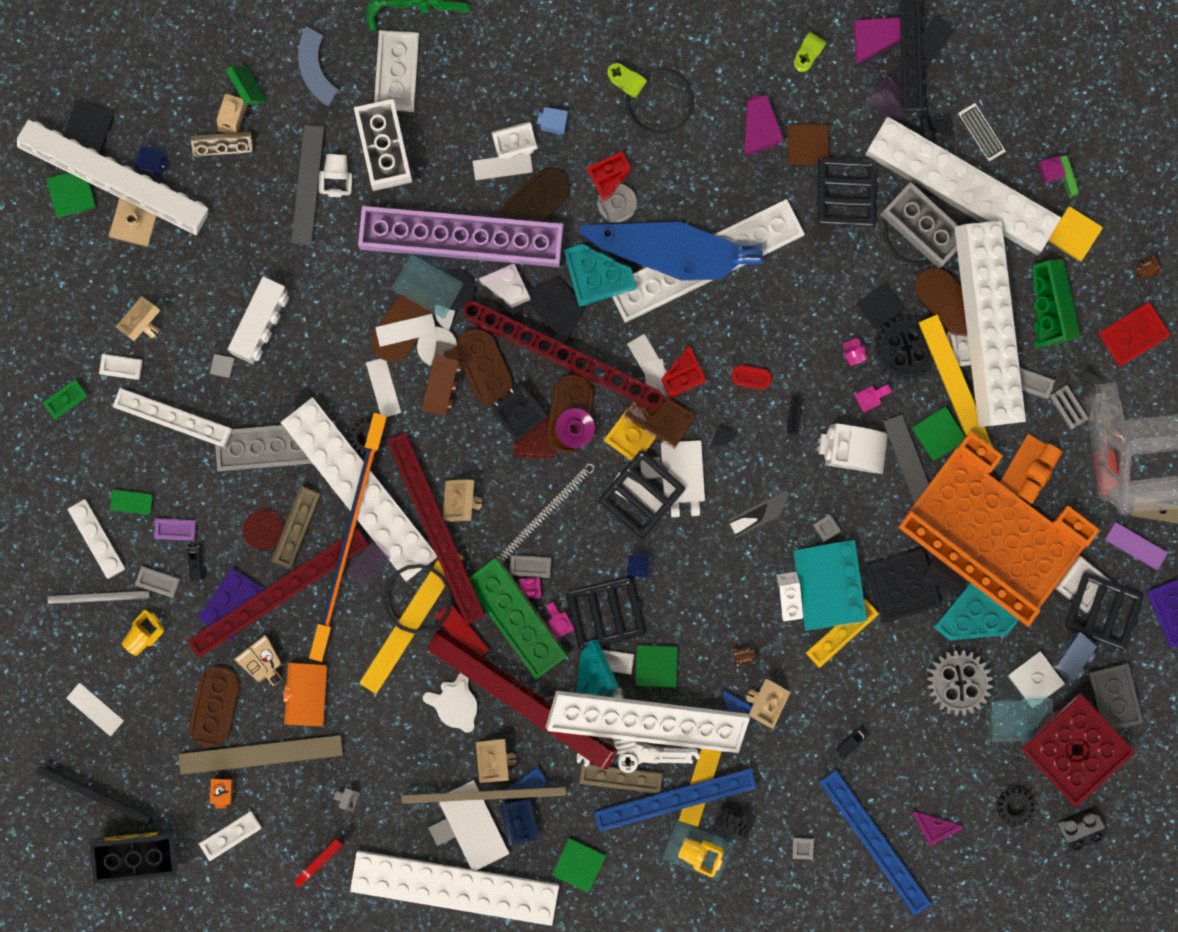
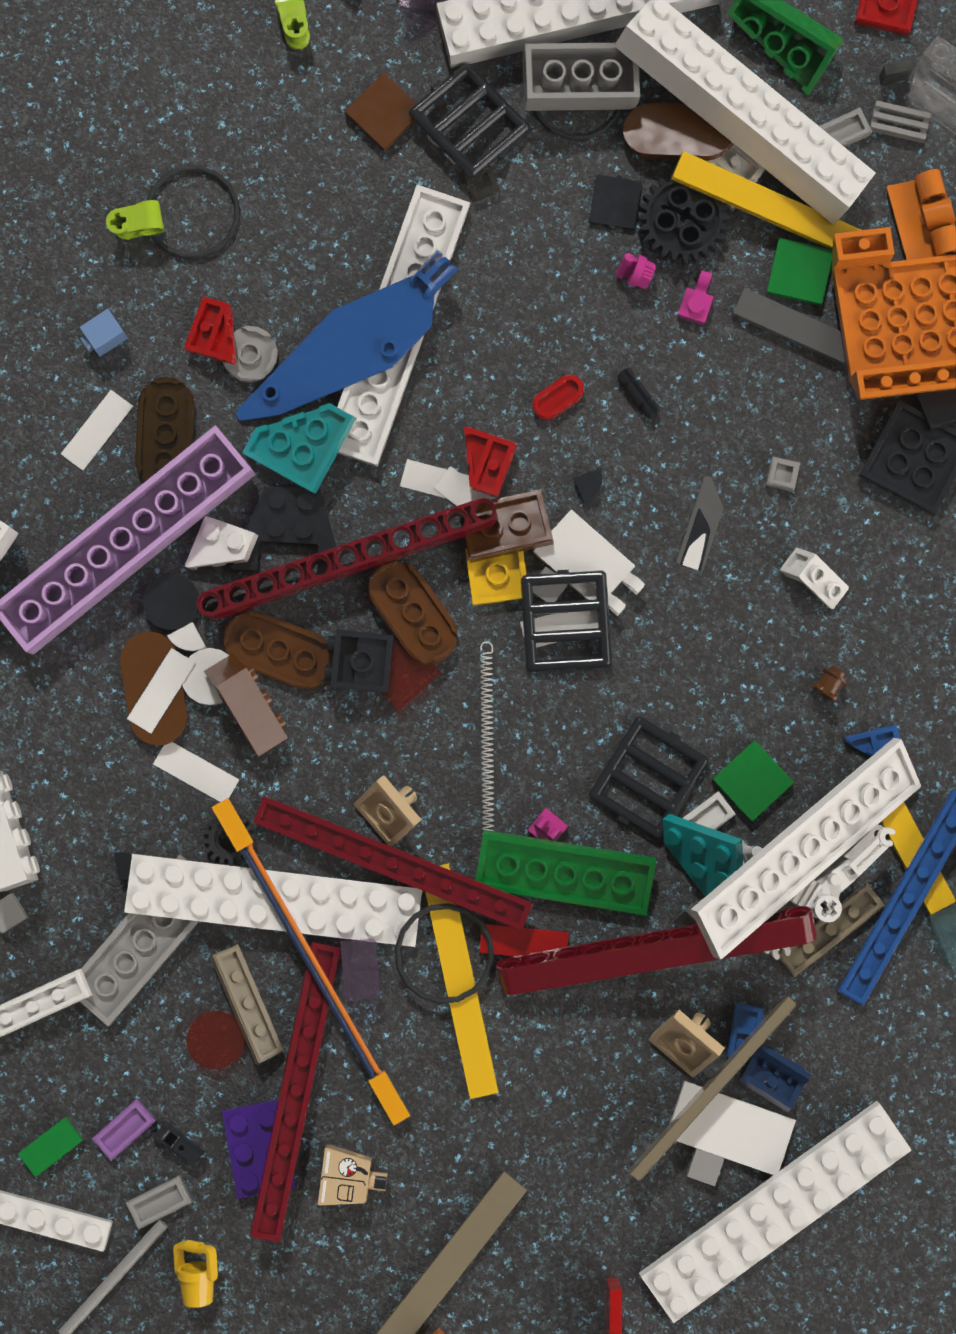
camera: 40 degrees left, 0 degrees up
(214, 706) = (344, 1272): reddish brown tile -> none
(305, 694) = (427, 1167): orange panel -> none
(347, 799) = (576, 1230): light grey tile -> none
(427, 286) = (139, 624): clear light blue plate -> none
(455, 705) = (589, 1022): white tile -> none
(514, 141) = (83, 391): white bracket -> none
(530, 566) = (525, 805): light grey tile -> none
(559, 623) = (611, 834): dark pink plate -> none
(578, 865) = (876, 1061): green tile -> none
(583, 423) = (438, 608): magenta dish -> none
(637, 566) = (635, 698): clear blue brick -> none
(760, 126) = (318, 137): magenta slope -> none
(767, 703) = (902, 707): tan tile -> none
(830, 585) = (846, 526): teal slope -> none
(838, 637) = (903, 563): yellow tile -> none
(854, 448) = (730, 367): white piece -> none

